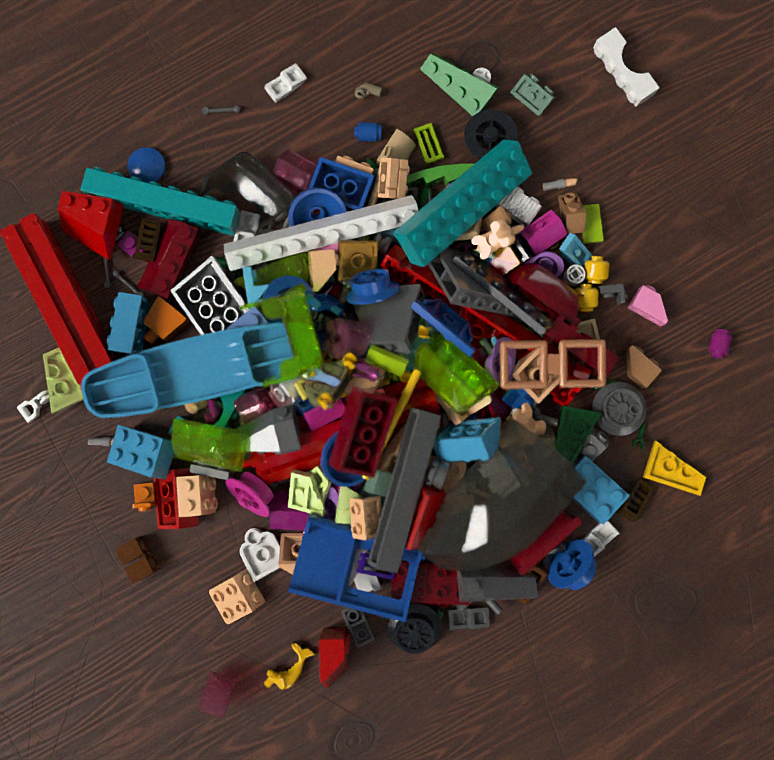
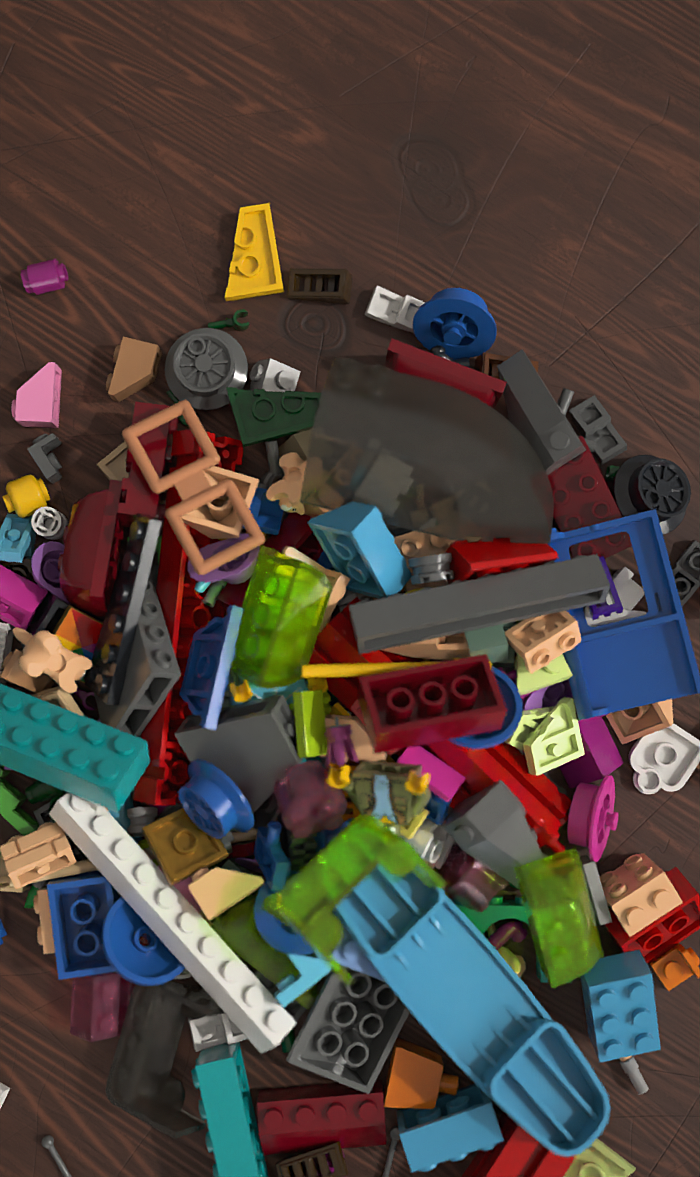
camera: 125 degrees left, 0 degrees up
(587, 297) = (71, 488): yellow head -> none
(600, 494) = (336, 331): dark azure brick -> none

